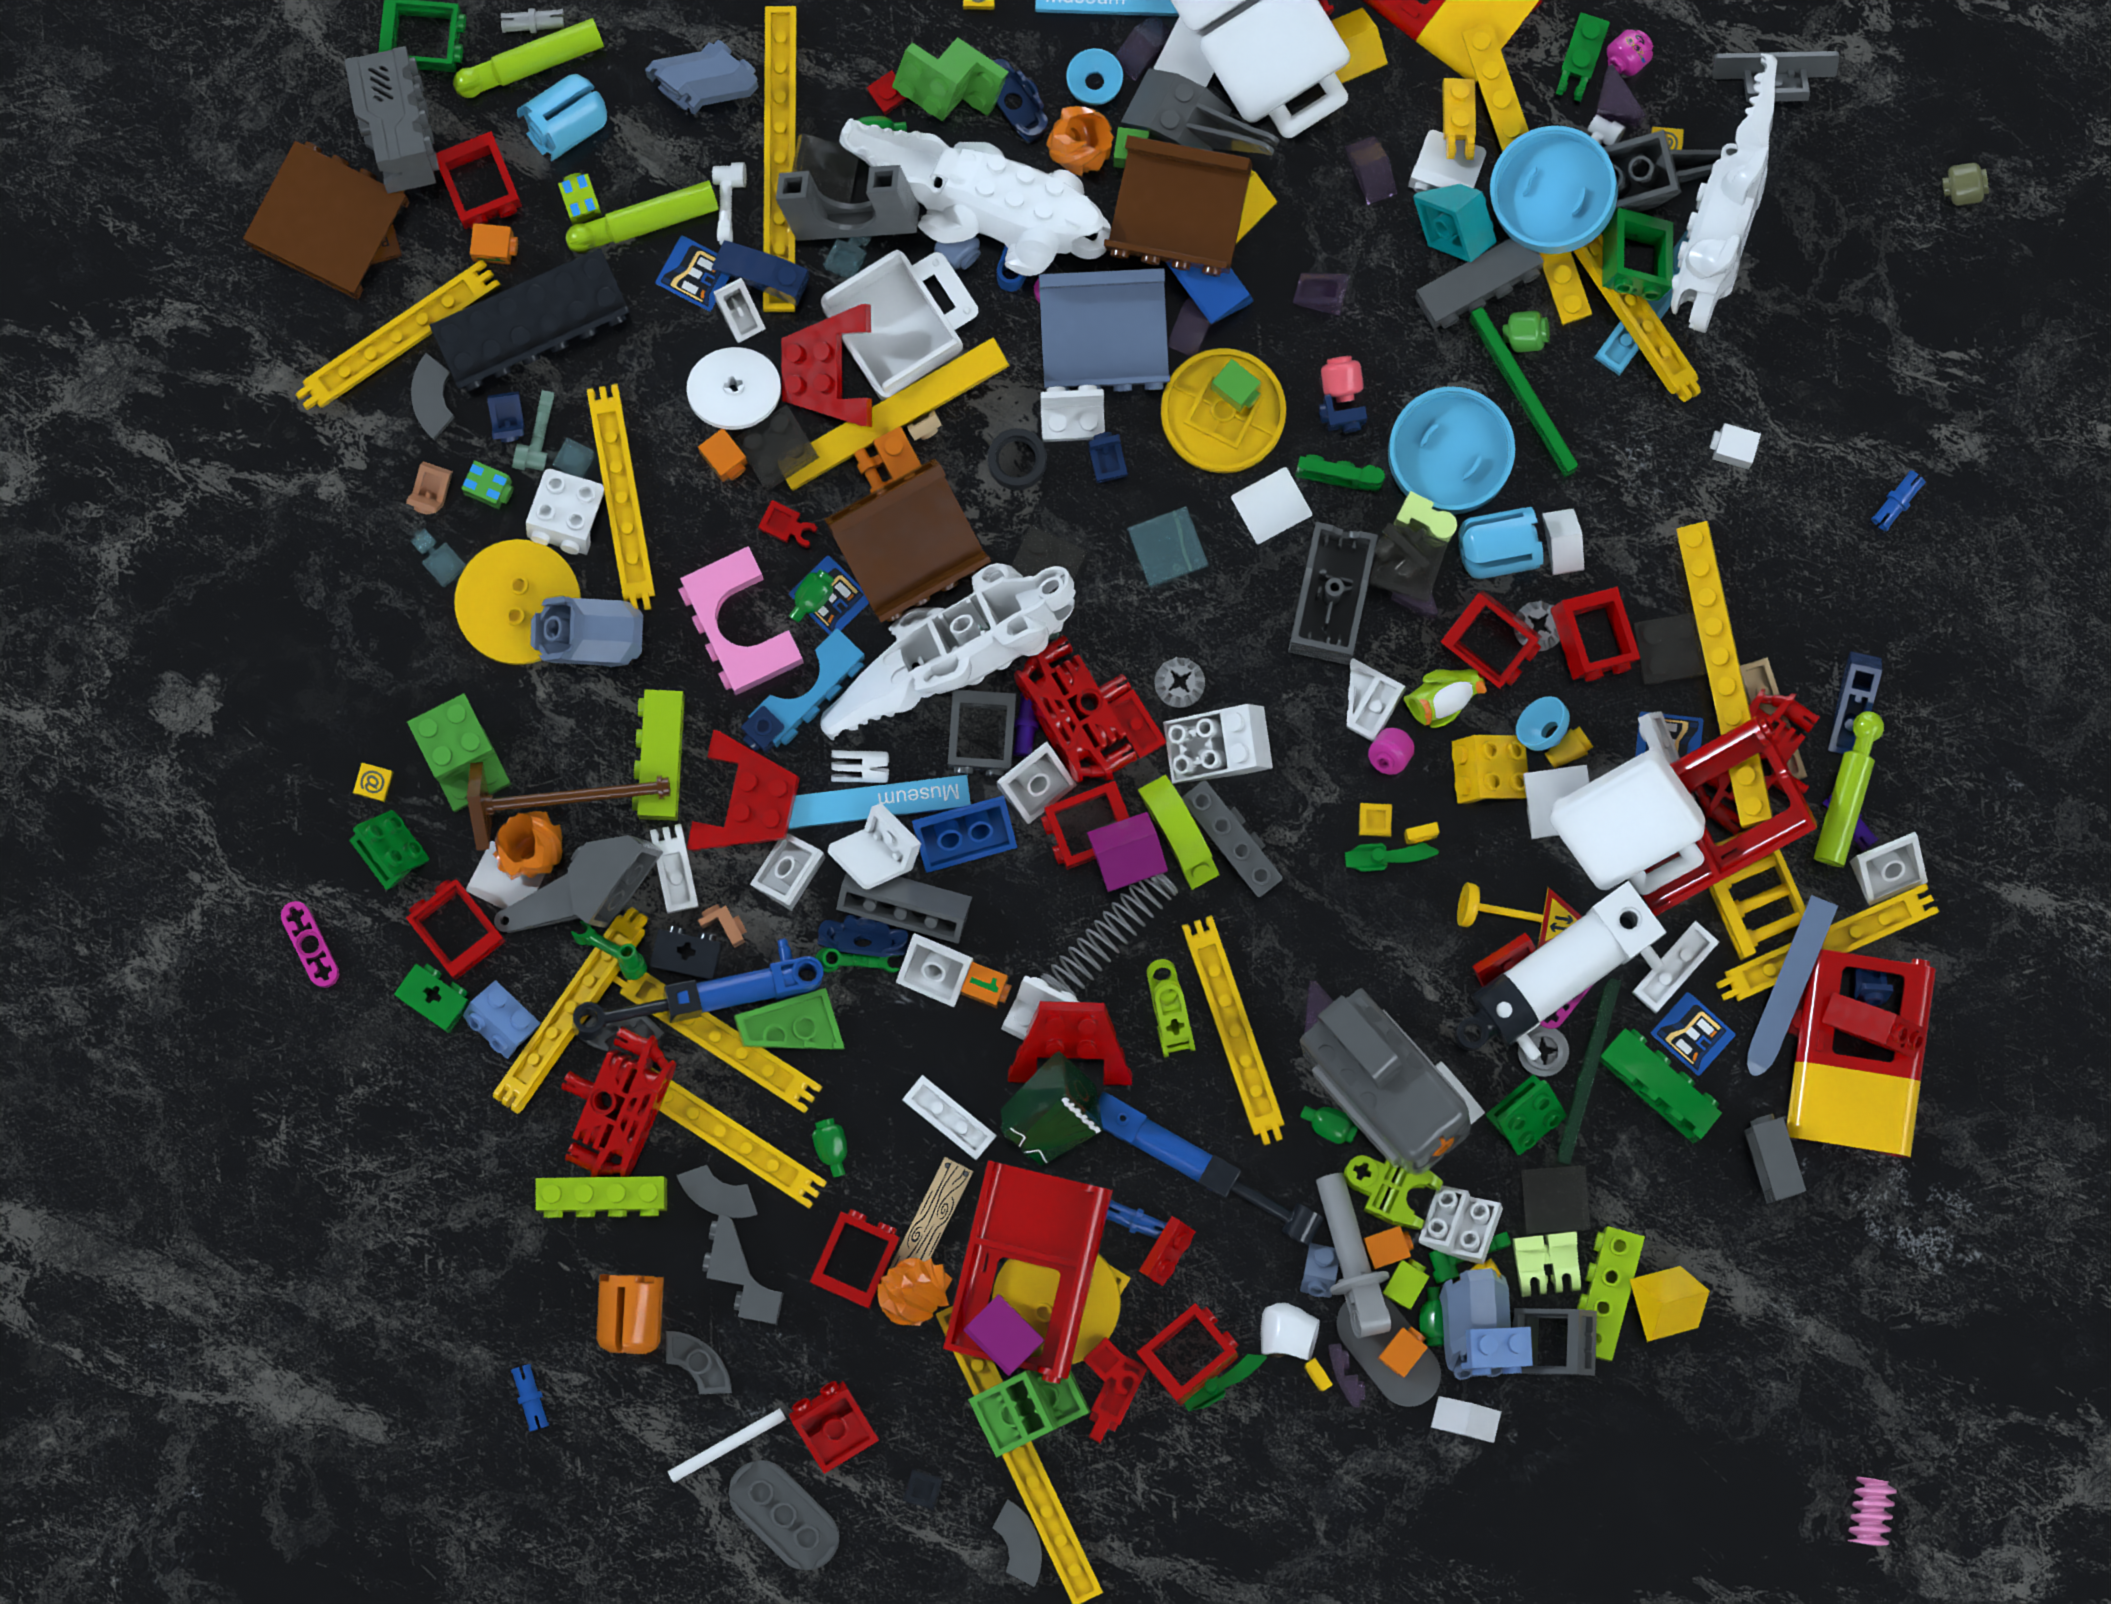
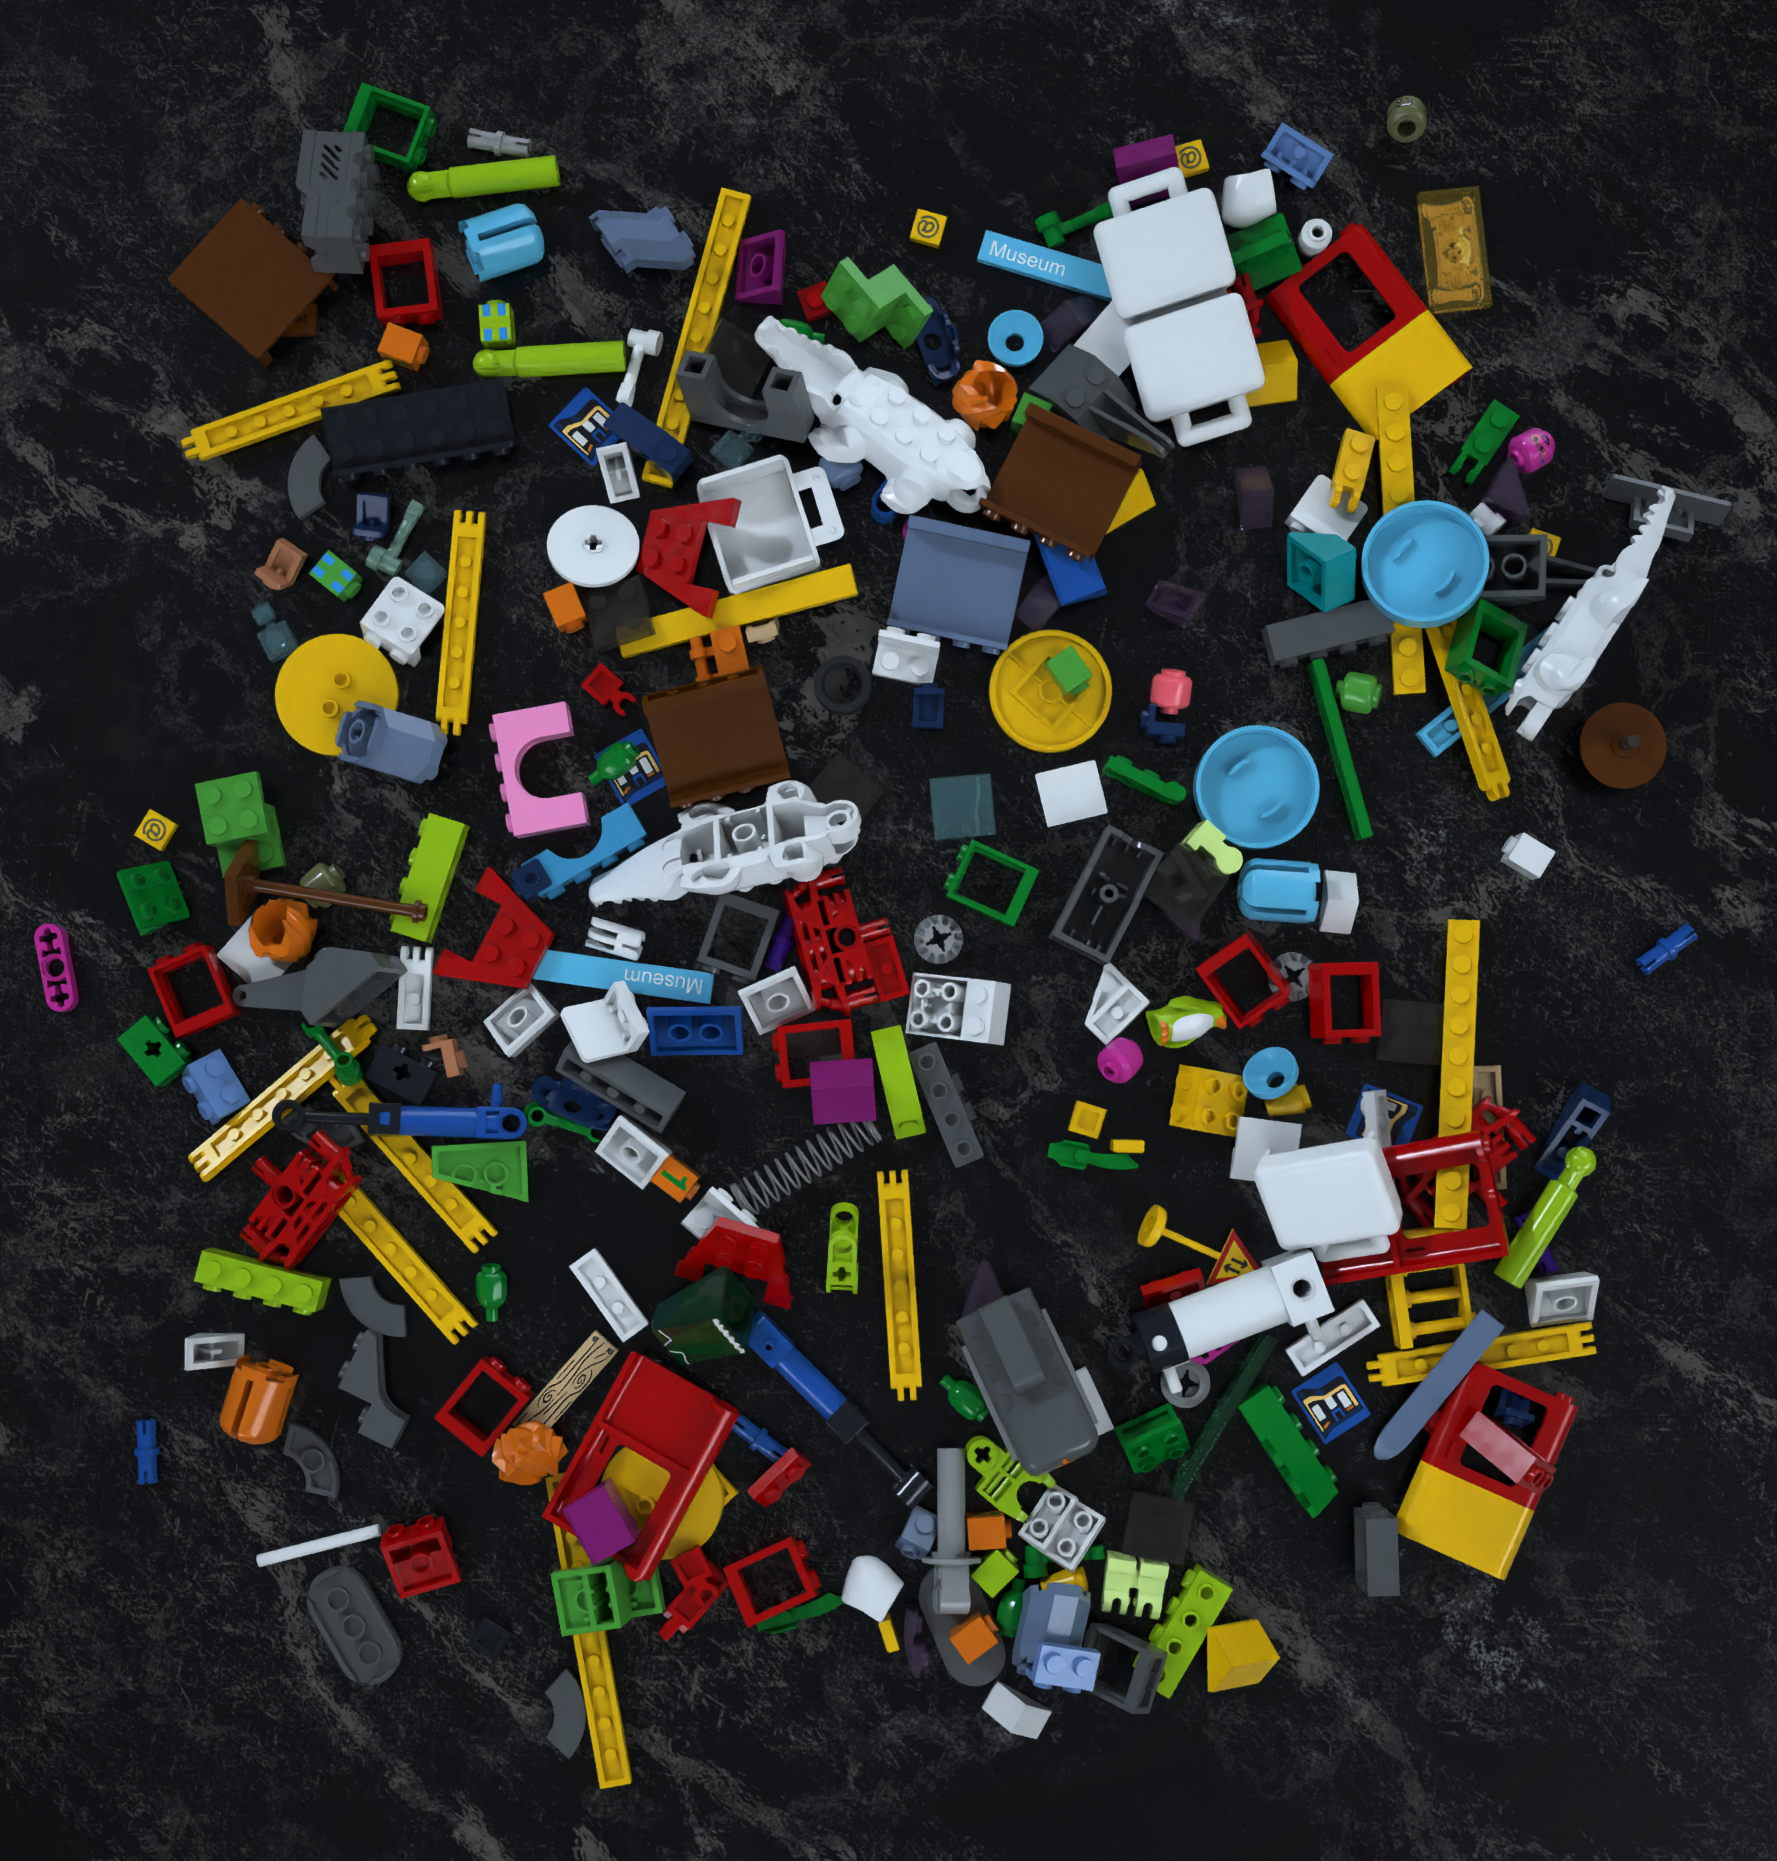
camera: 15 degrees right, 5 degrees up
(555, 782) = (324, 878): none -> olive head
(572, 1277) = (213, 1350): none -> white slope
(825, 75) = (761, 268): none -> magenta slope
(1183, 594) = (1020, 896): none -> green window
(1797, 313) = (1623, 745): none -> reddish brown piece

